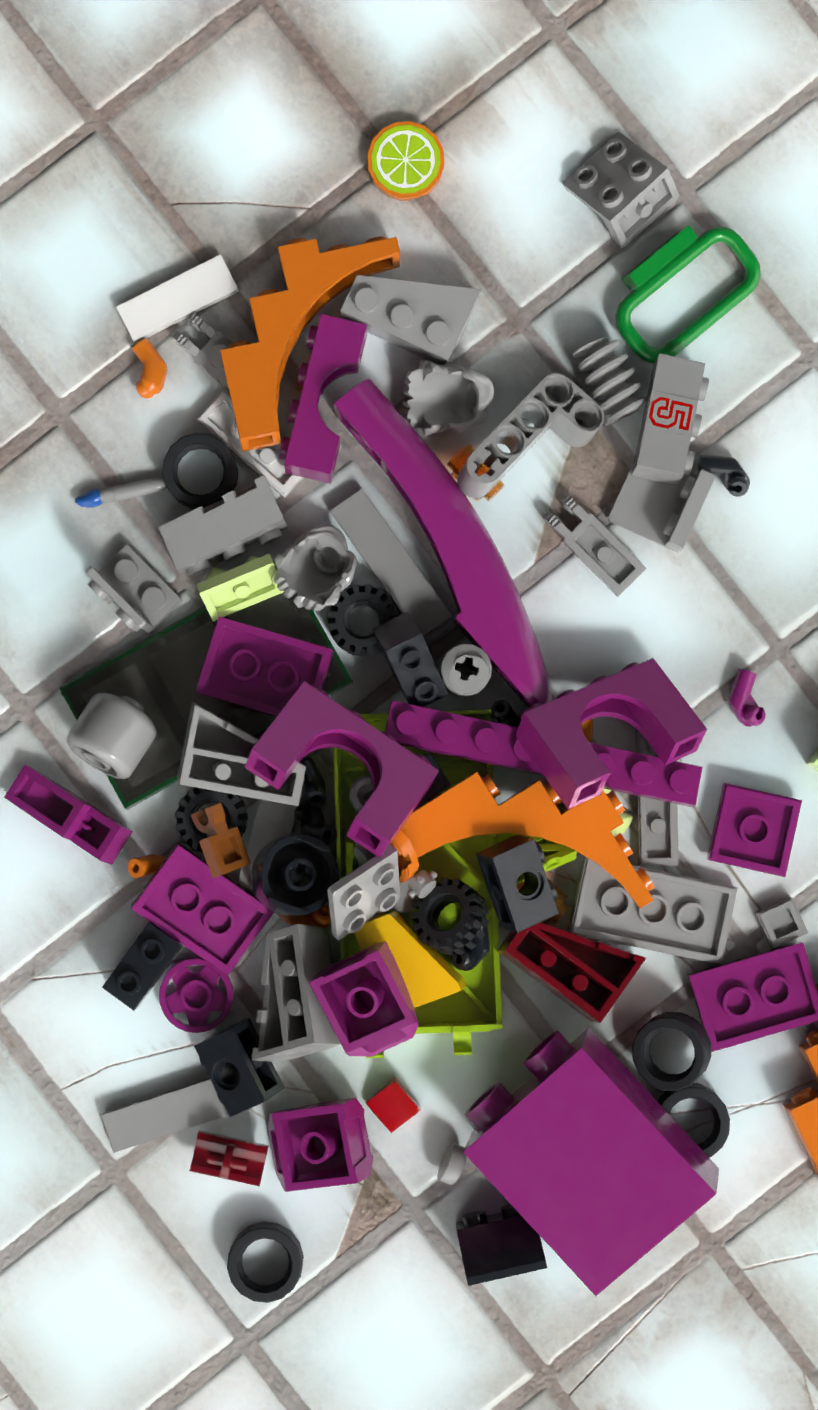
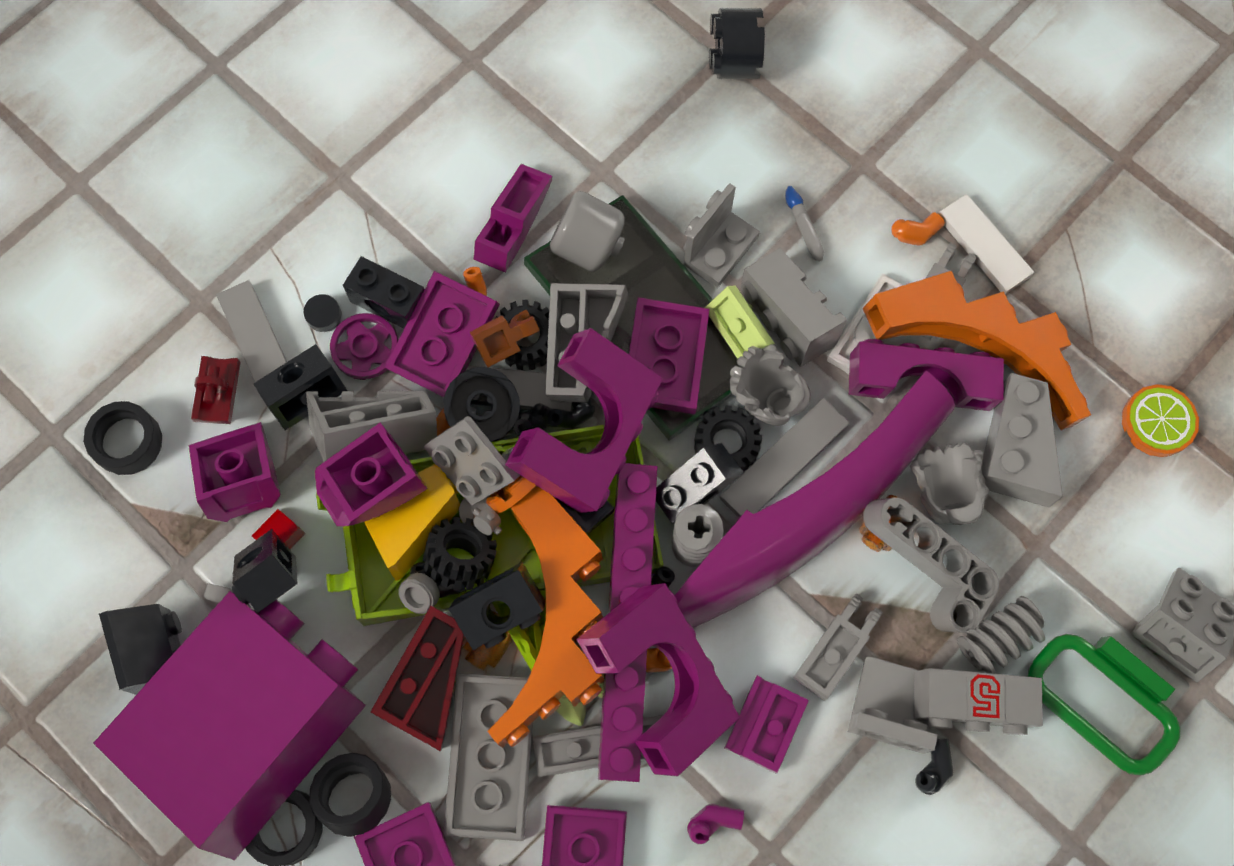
camera: 80 degrees right, 15 degrees down
(150, 1037) = (322, 313): none -> black tile
(179, 450) = (852, 262): black tyre -> none
(444, 1117) = (264, 571): none -> black brick
(484, 962) = (419, 593): none -> light grey tile
(660, 632) = (766, 724): none -> magenta plate

